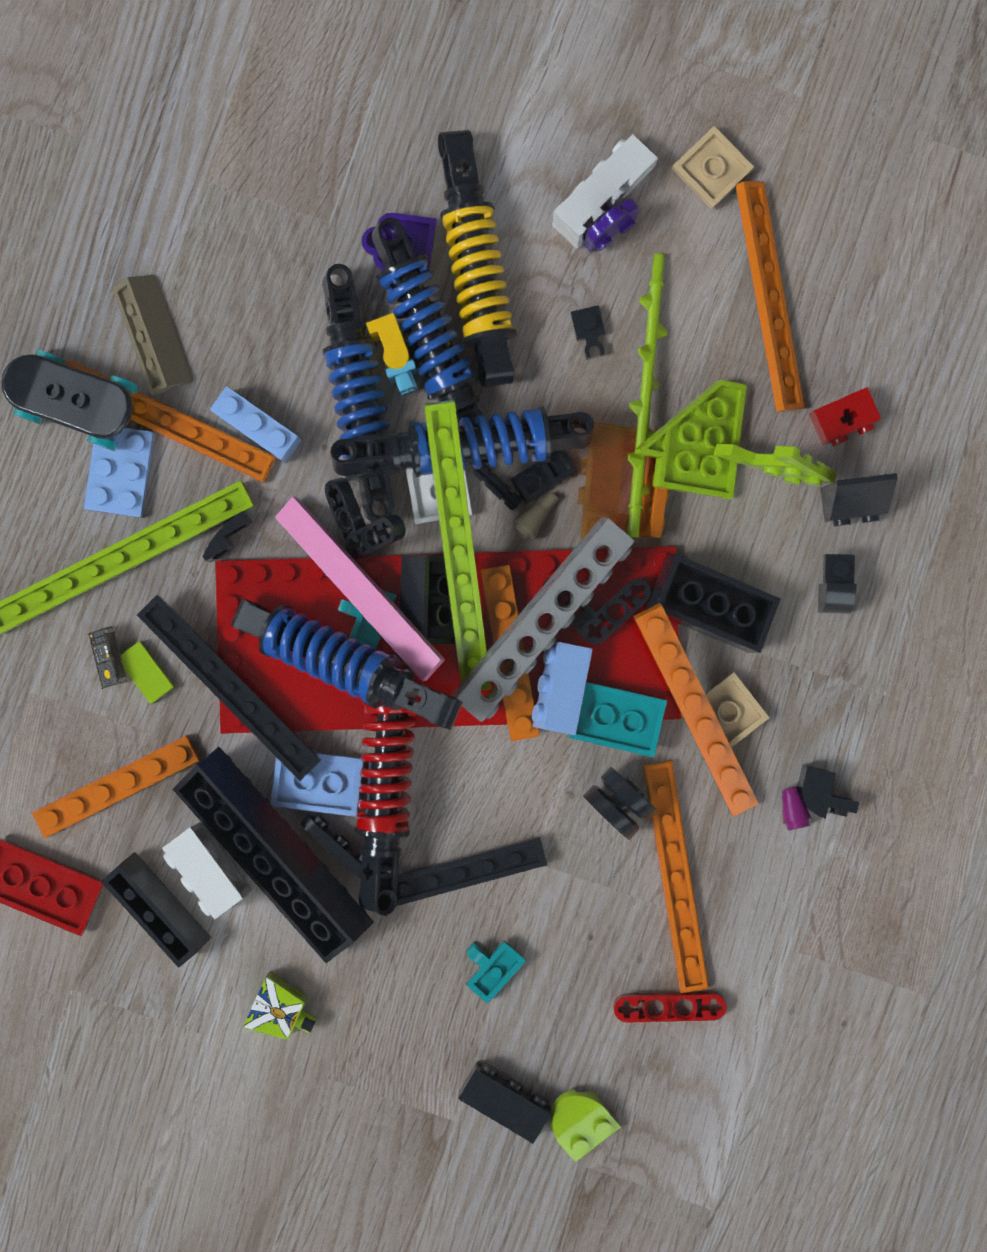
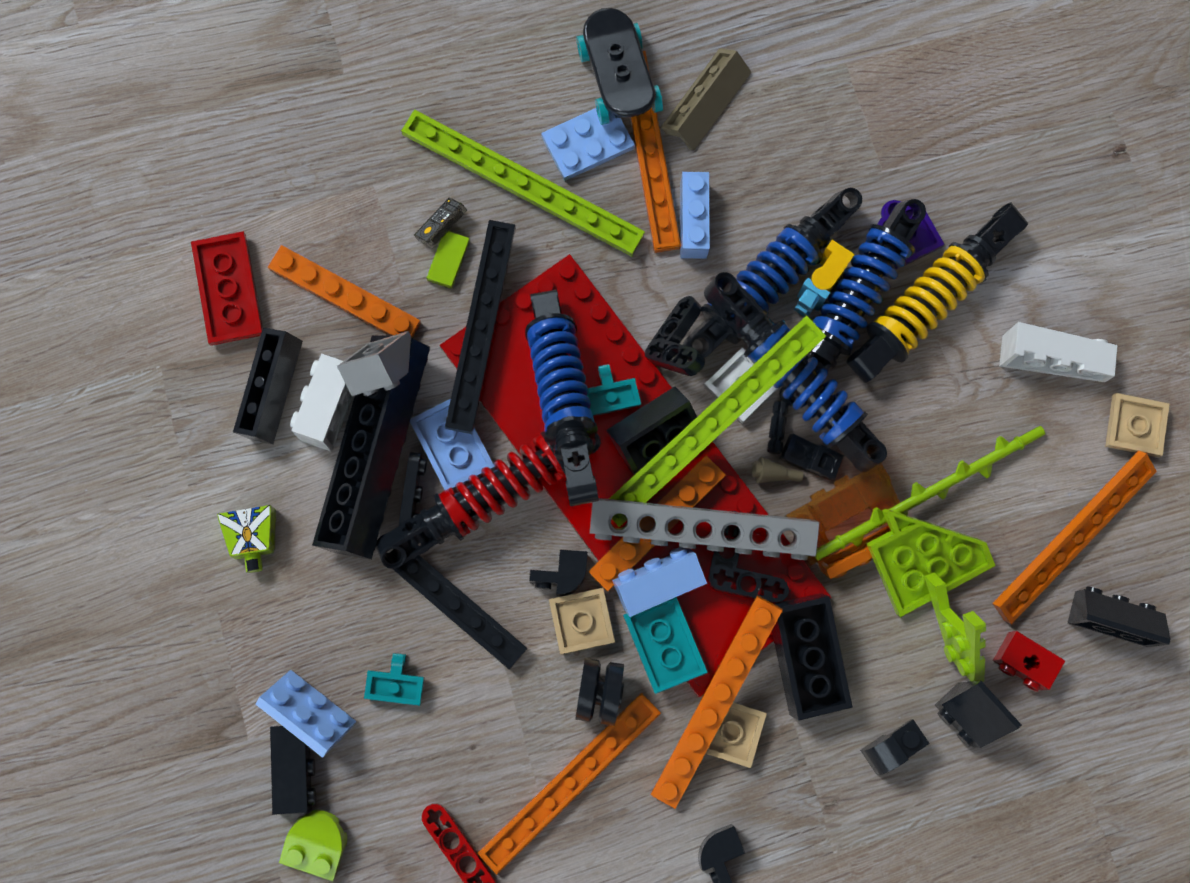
camera: 50 degrees right, 10 degrees down
(206, 807) = (377, 365): none -> light grey slope
(220, 542) = (586, 247): black slope -> none
(360, 589) = (626, 373): bright pink tile -> none
(467, 1061) = (306, 713): none -> light blue plate
(502, 757) = (569, 575): none -> black brick
(548, 774) = (581, 621): none -> tan plate
(587, 327) = (947, 414): black plate -> none
(617, 219) = (1042, 375): dark purple plate -> none
(794, 809) = (689, 844): magenta cone -> none
(863, 311) = (1119, 618): none -> black slope

